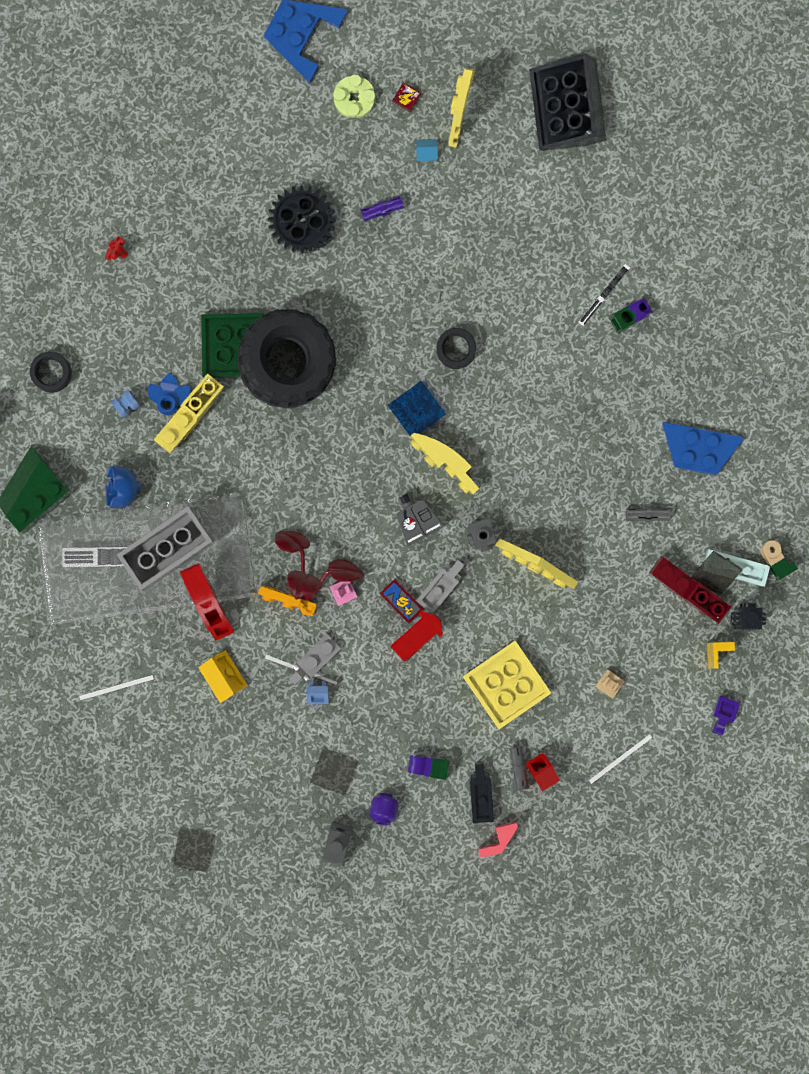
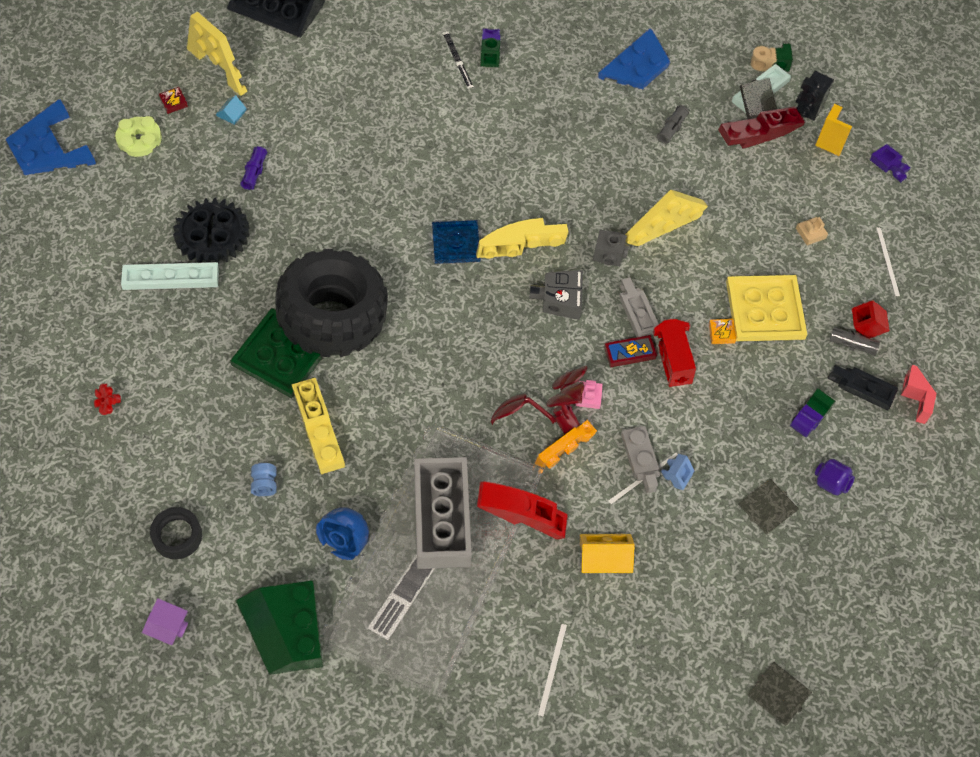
camera: 65 degrees left, 25 degrees down
(168, 391) = (281, 436): blue plate -> none
(244, 218) = (170, 276): none -> light aqua plate
(337, 843) = (851, 539): dark grey torso -> none
(460, 333) = (423, 194): black tyre -> none
(464, 661) = (722, 331): none -> light orange tile

